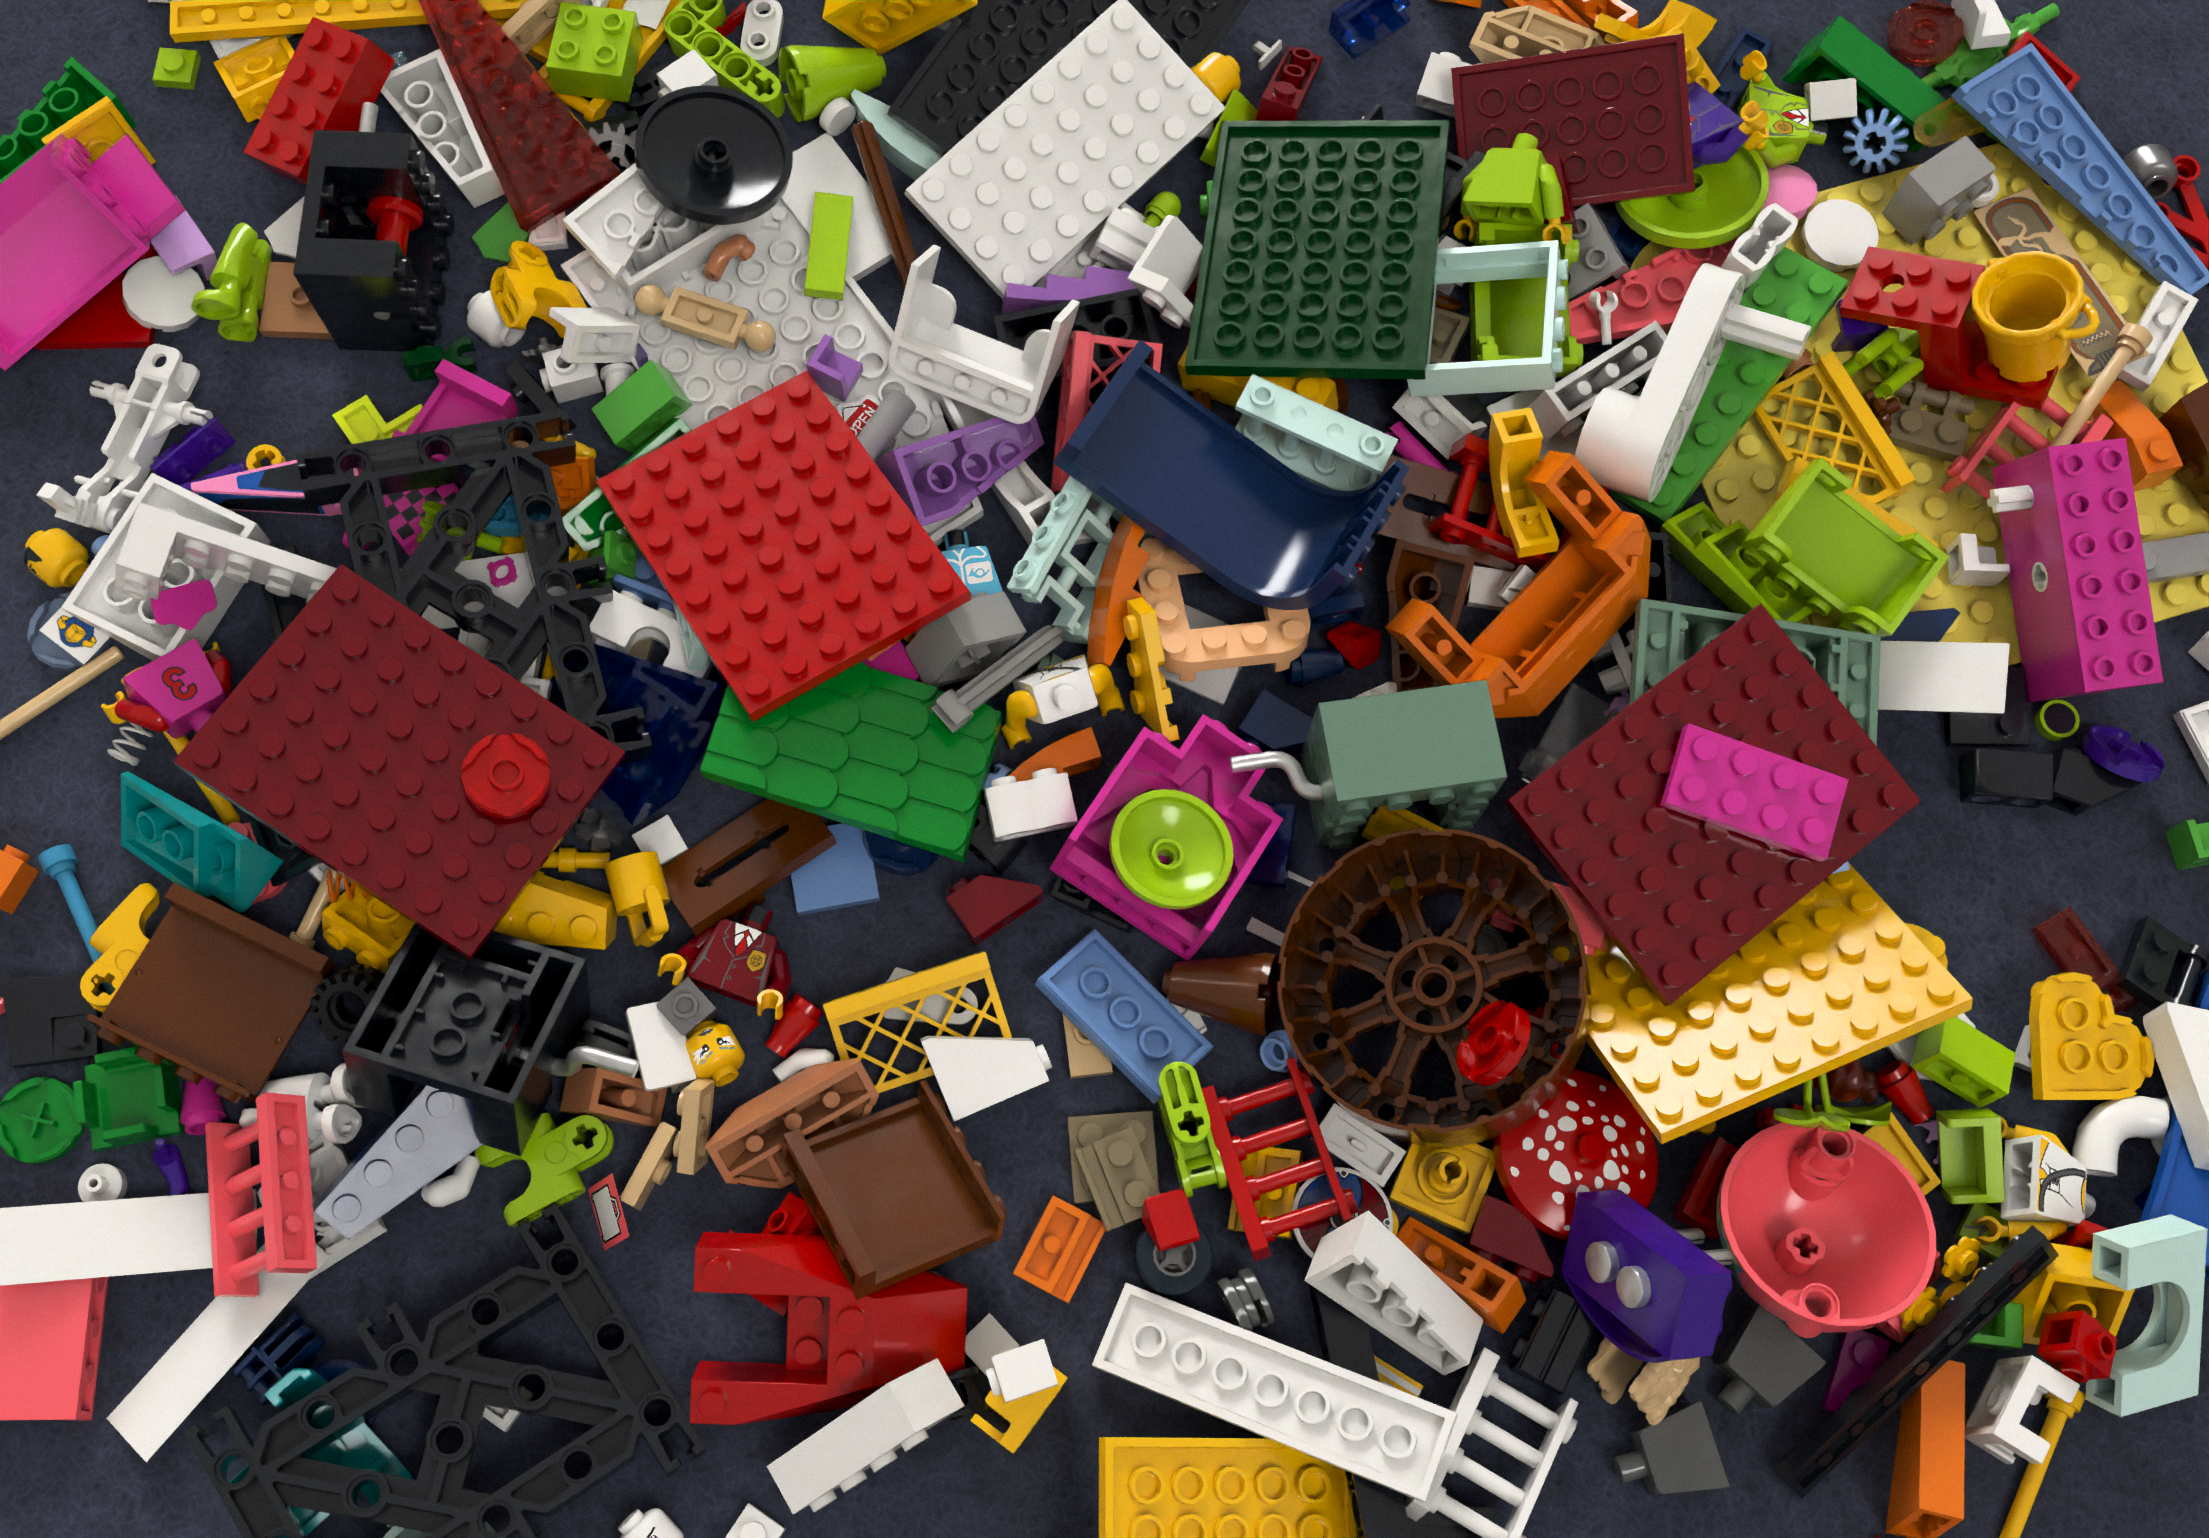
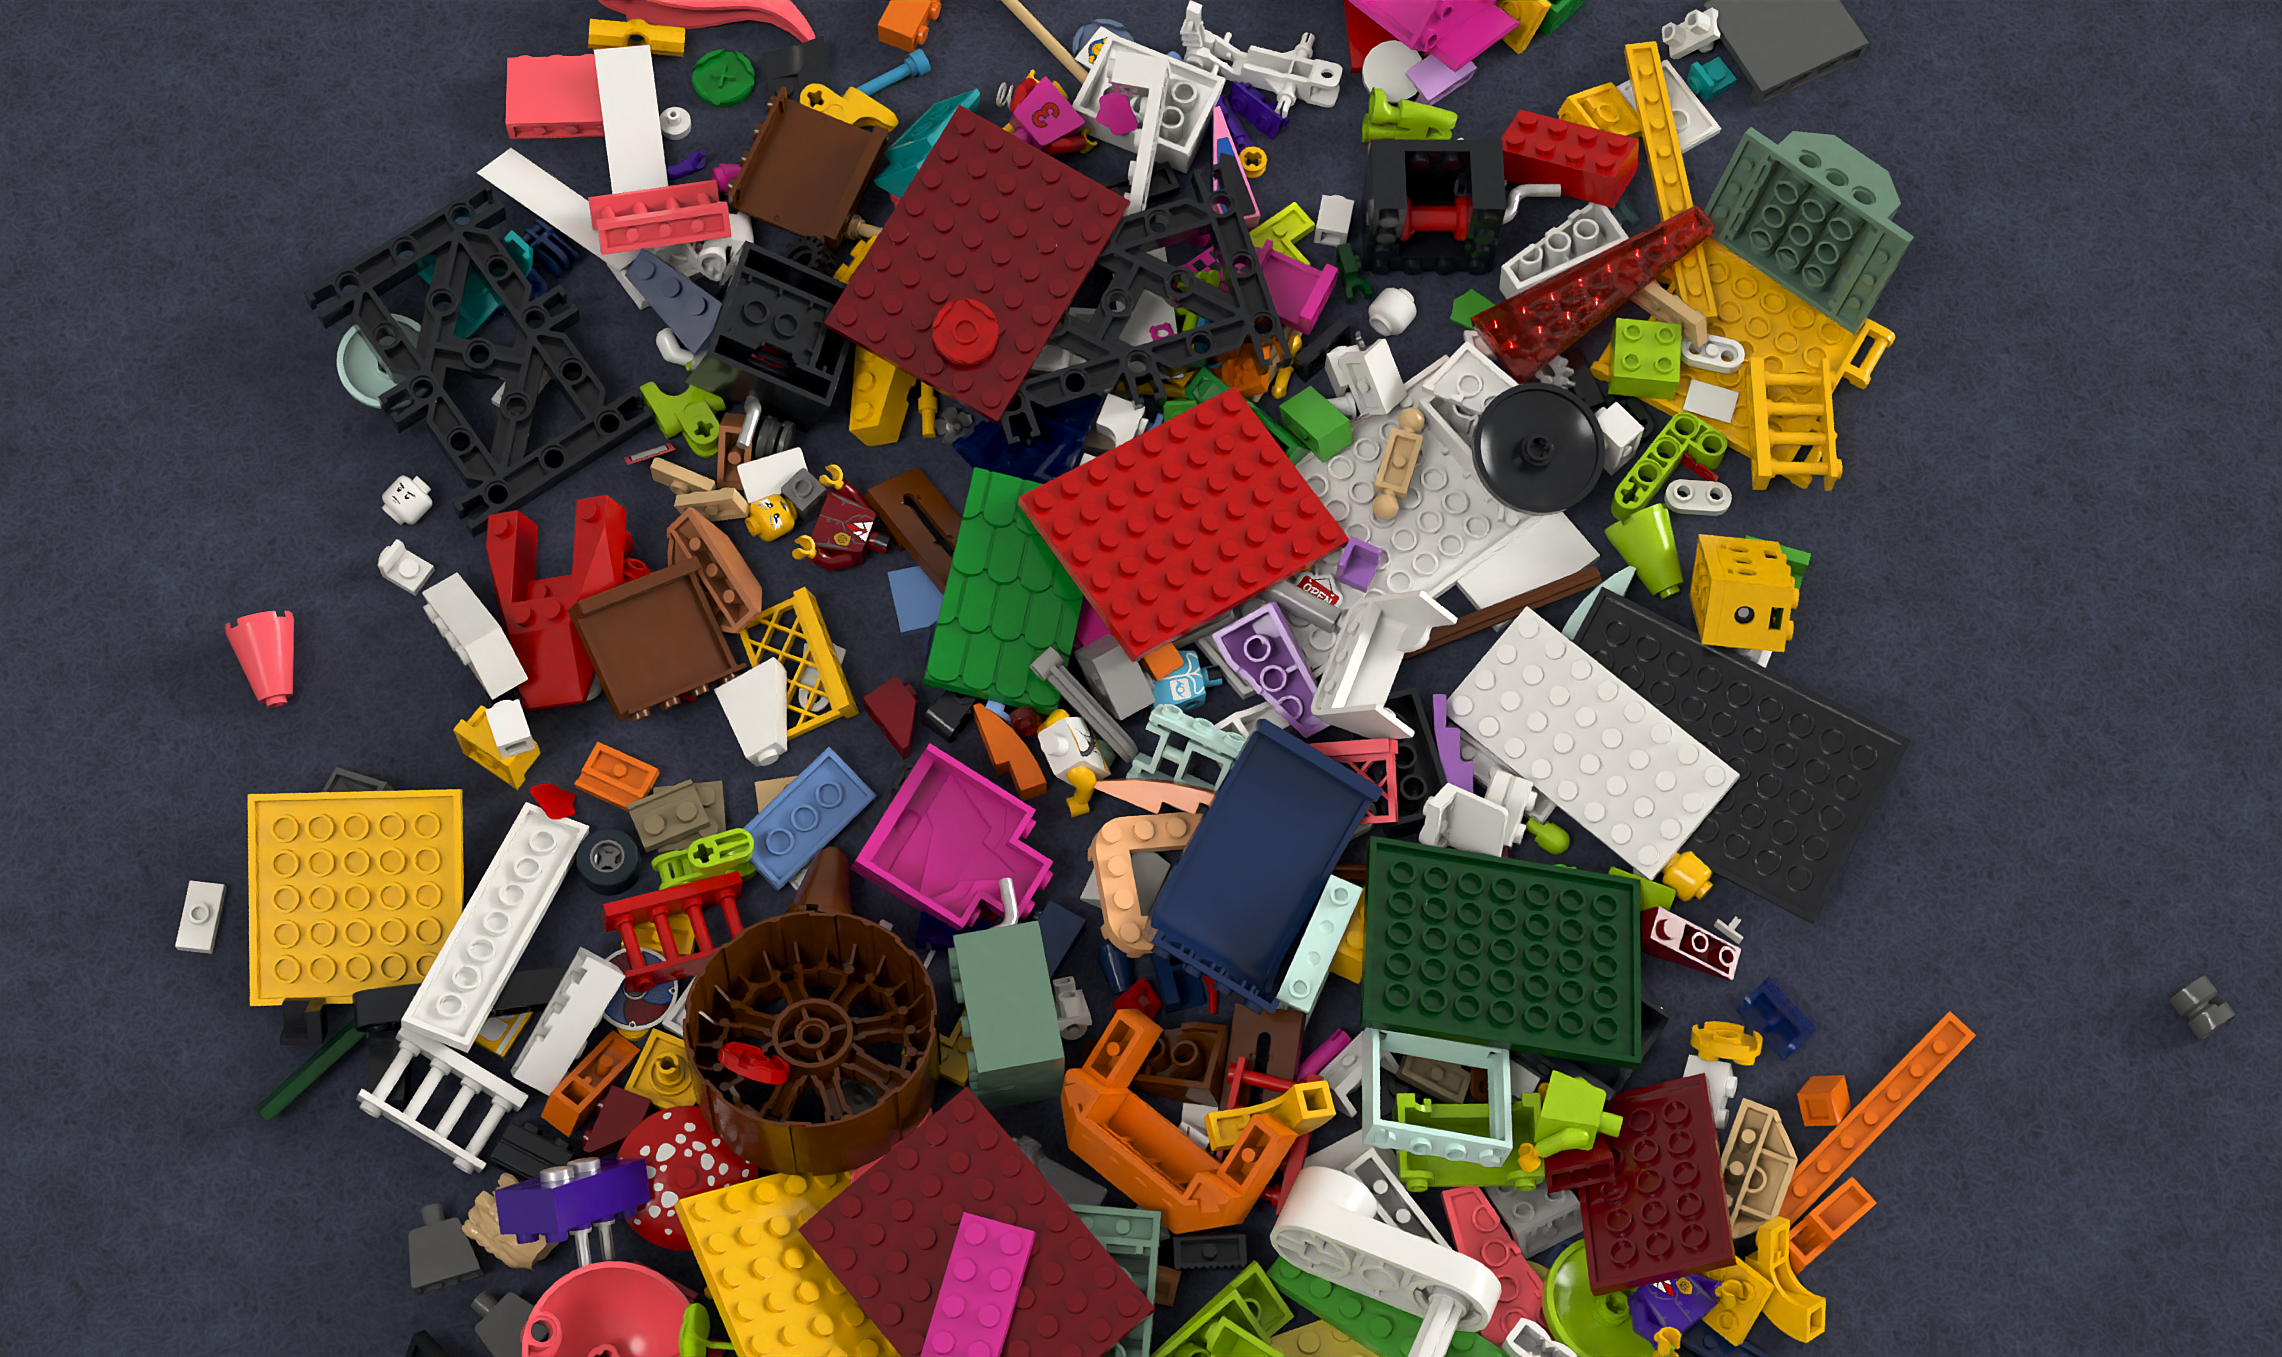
camera: 90 degrees right, 5 degrees down
(56, 557) = (1160, 28): yellow head -> none
(128, 1100) = (732, 126): green panel -> none
(176, 68) = (1606, 57): lime plate -> none
(363, 373) = (1333, 220): none -> white brick
(531, 288) = (1415, 331): yellow piece -> none
(640, 887) = (901, 451): yellow piece -> none
(661, 838) = (944, 470): white tile -> none
(724, 252) = (1463, 474): nougat arm -> none
(797, 1022) = (796, 574): red cone -> none
(801, 1060) = (768, 584): white arm -> none
(828, 246) = (1481, 558): lime tile -> none
(837, 116) = (1612, 558): white tile -> none
(987, 1340) = (547, 729): white tile -> none
(1011, 749) = (1025, 721): none -> clear red plate
(1030, 805) = (970, 730): white brick -> none
(1087, 1330) = (554, 801): none -> red sticker
(1143, 662) = (1090, 821): yellow wing -> none
(1169, 1220) = (631, 848): red slope -> none
(1182, 831) = (937, 812): lime dish -> none
(1245, 1300) = (570, 913): dark grey wheel -> none
(1402, 59) = (1726, 1041): none -> yellow plate
(1604, 312) = (1469, 1216): white hand -> none

